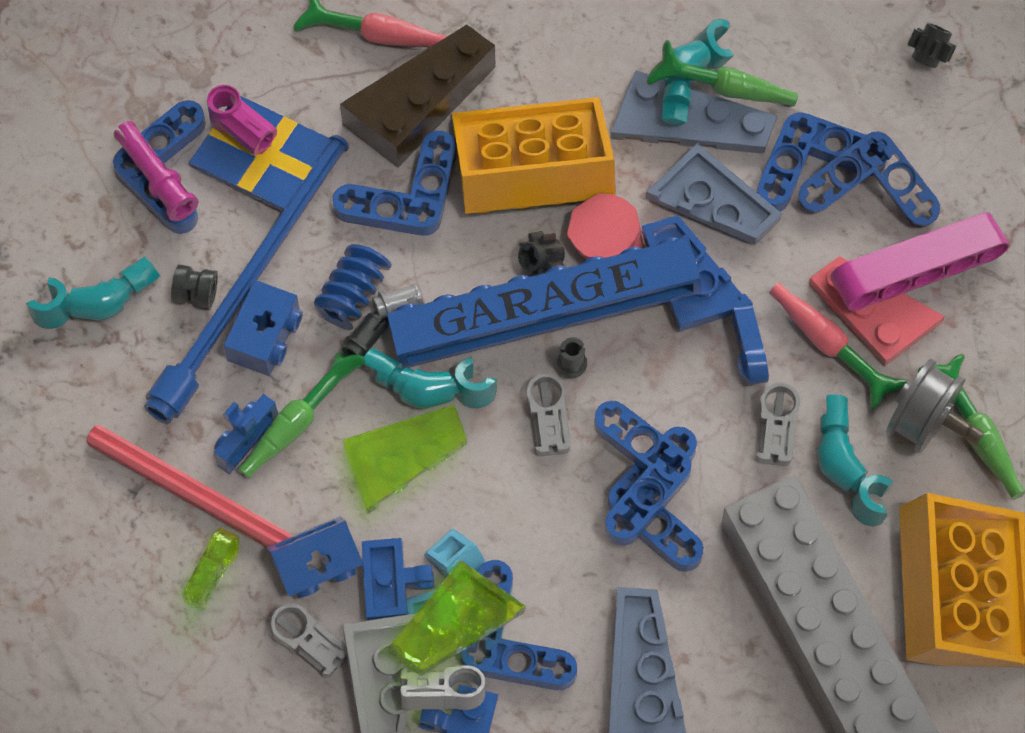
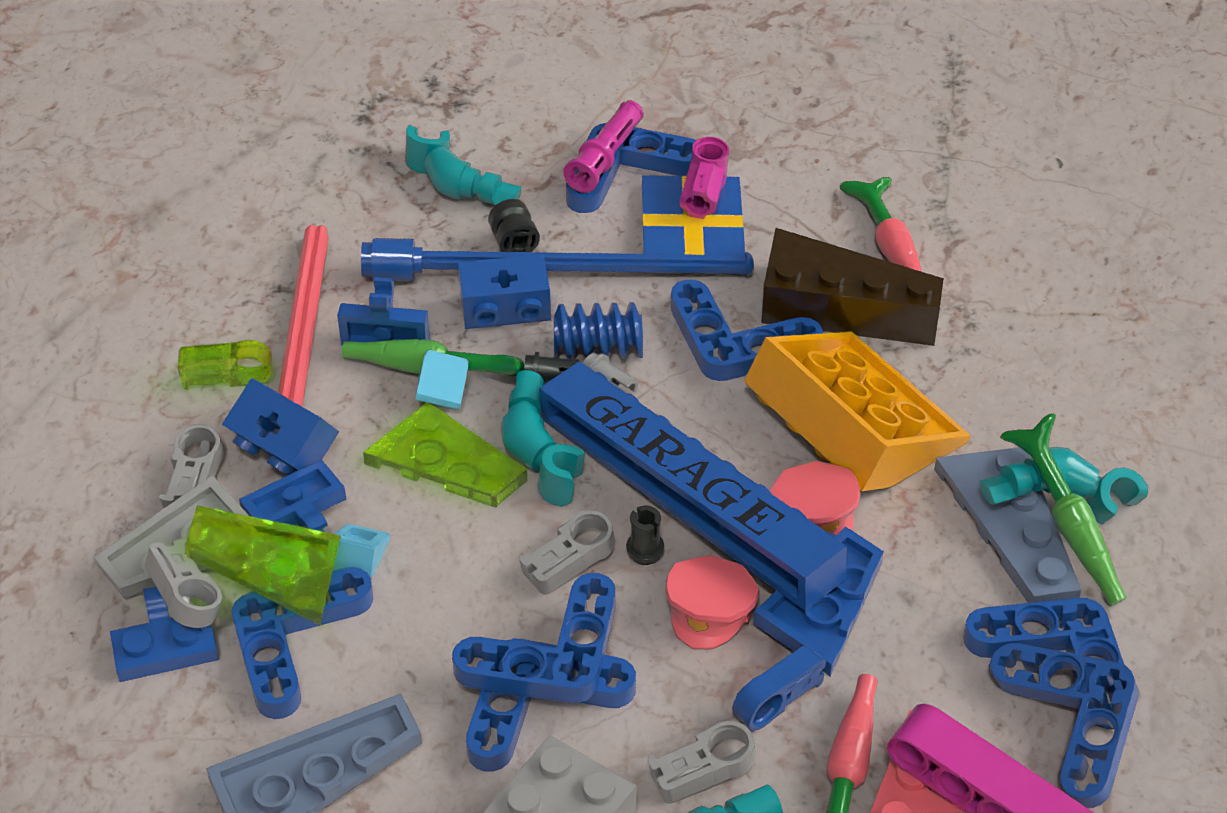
camera: 60 degrees right, 20 degrees down
(331, 419) = (442, 379): none -> medium azure slope
(540, 253) = (748, 455): pearl dark grey gear -> none
(649, 346) = (709, 600): none -> coral hat
(715, 196) = (935, 578): sand blue wing -> none

